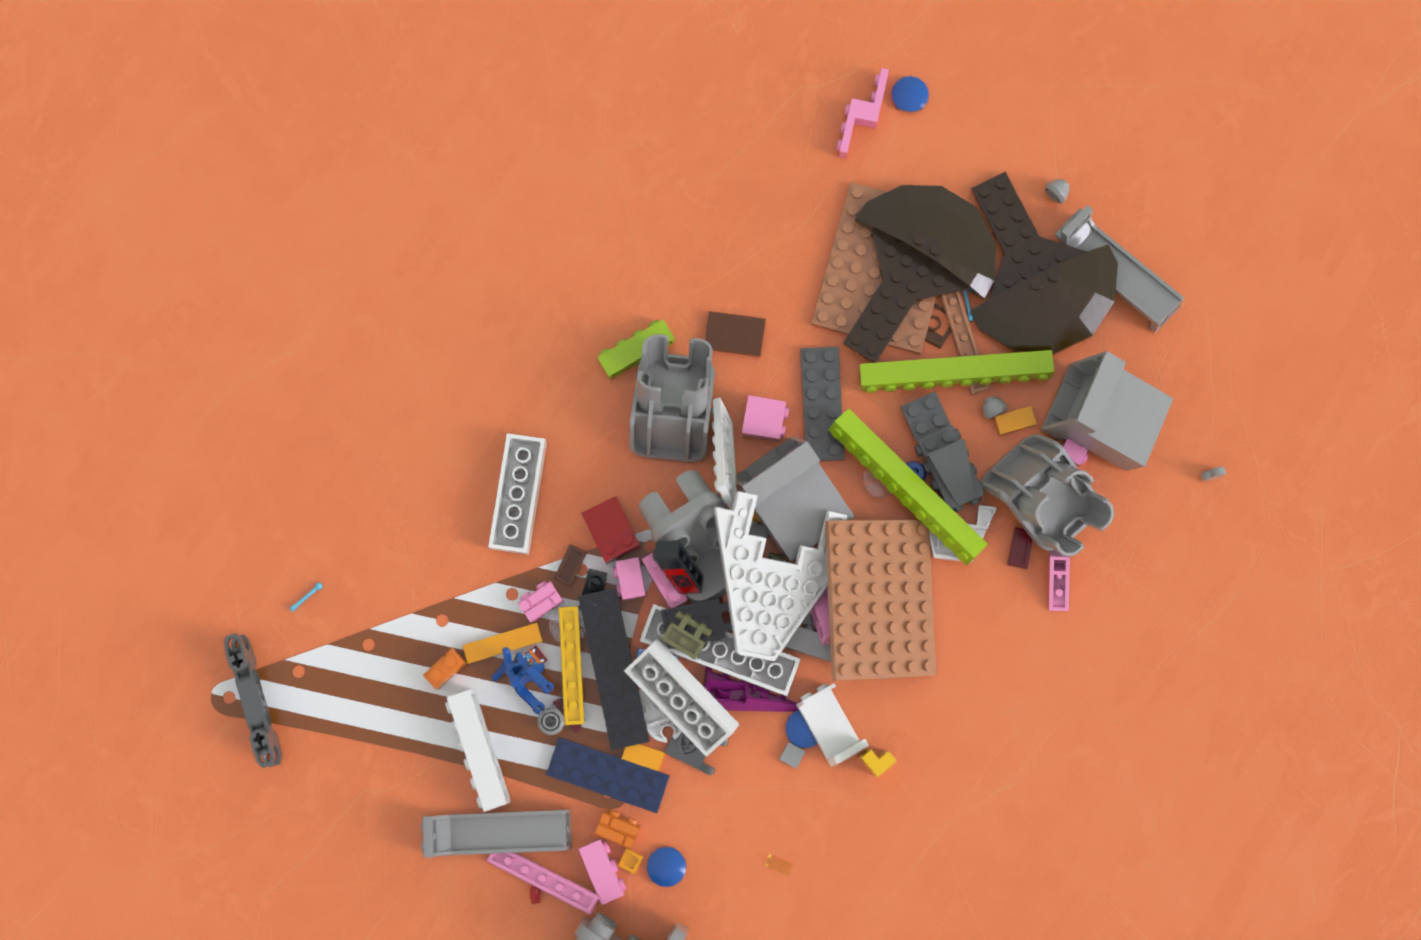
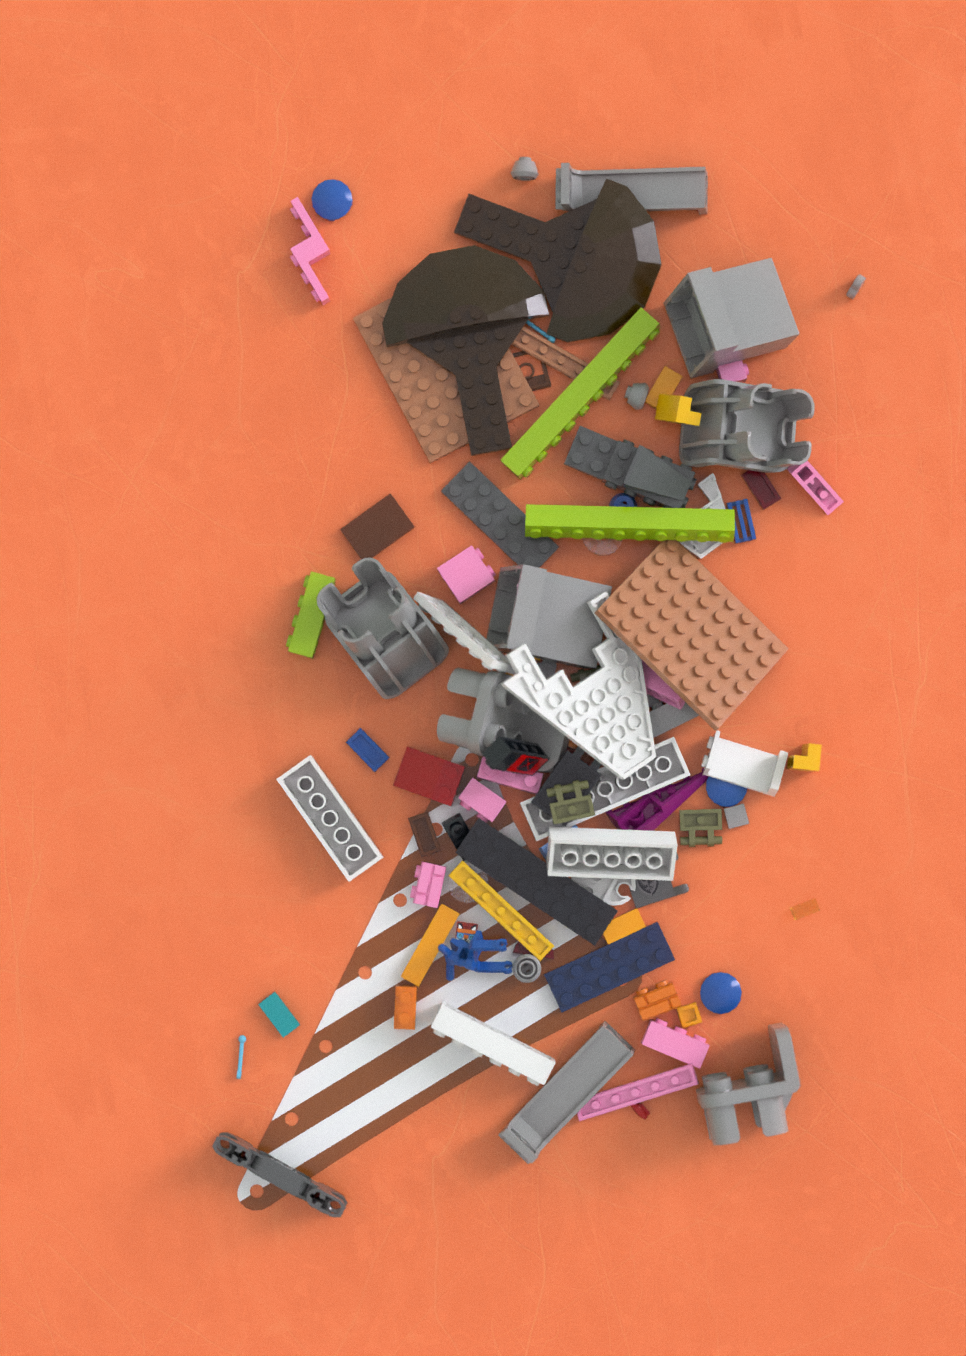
camera: 45 degrees left, 5 degrees up
(358, 593) = (279, 1014): none -> teal tile
(587, 473) = (367, 750): none -> blue tile
(765, 735) = (700, 820): none -> olive plate
(977, 572) = (749, 520): none -> blue tile
(1010, 439) = (676, 410): none -> yellow piece

